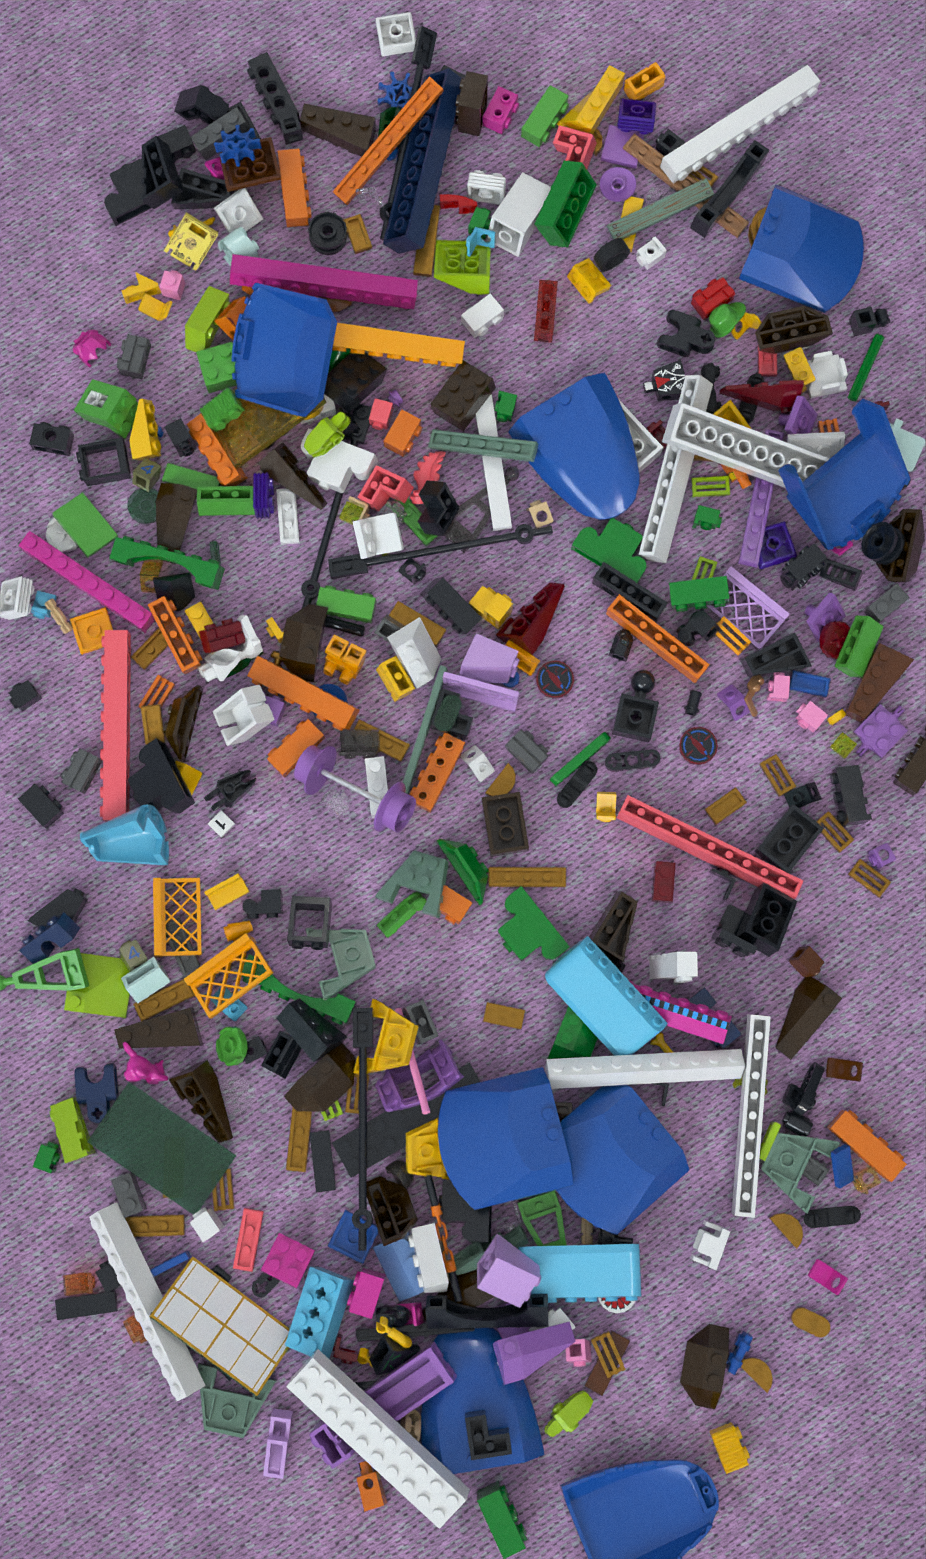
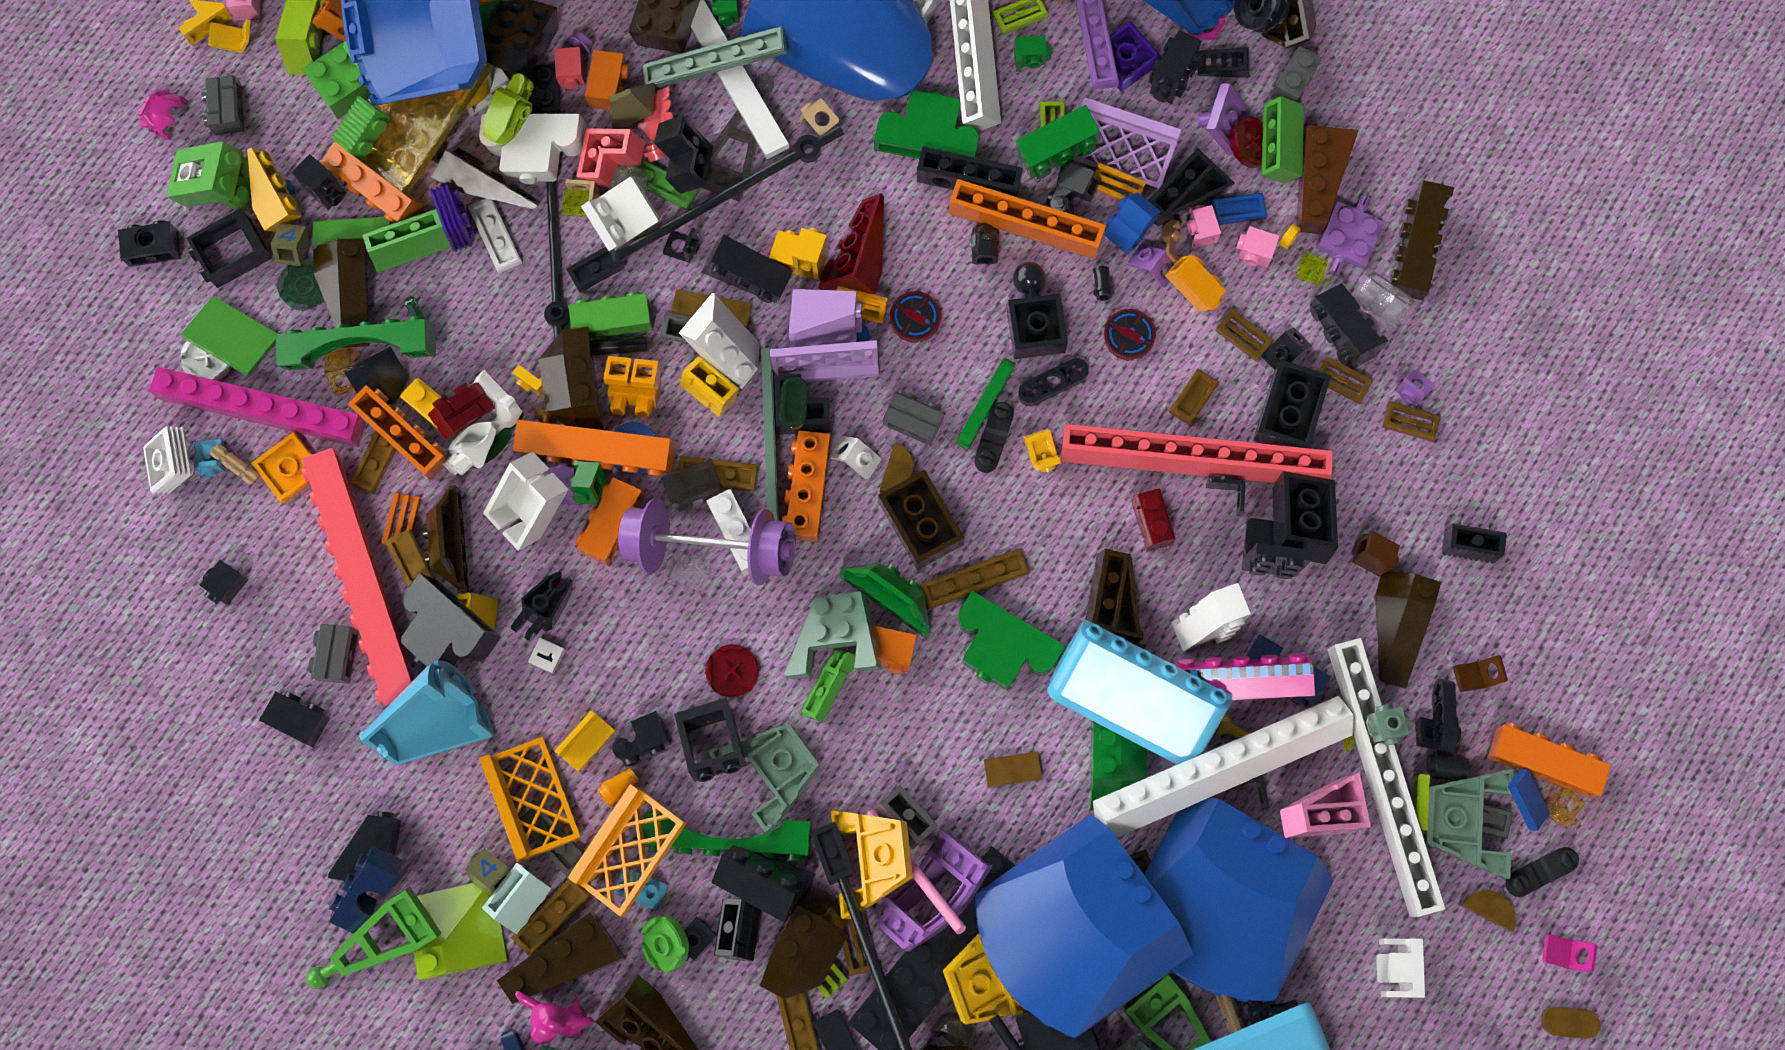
camera: 20 degrees left, 5 degrees down
(289, 717) = (587, 482): none -> green brick
(341, 880) = (732, 671): none -> dark red tile
(414, 458) = (632, 105): none -> olive slope
(703, 1122) = (1329, 810): none -> bright pink wedge
(728, 668) = (1131, 222): none -> blue brick
(757, 728) = (1196, 283): none -> light orange brick
(757, 1079) = (1380, 729): none -> sand green brick
(876, 979) = (1474, 543): none -> black brick
(882, 787) = (1382, 301): none -> clear brick

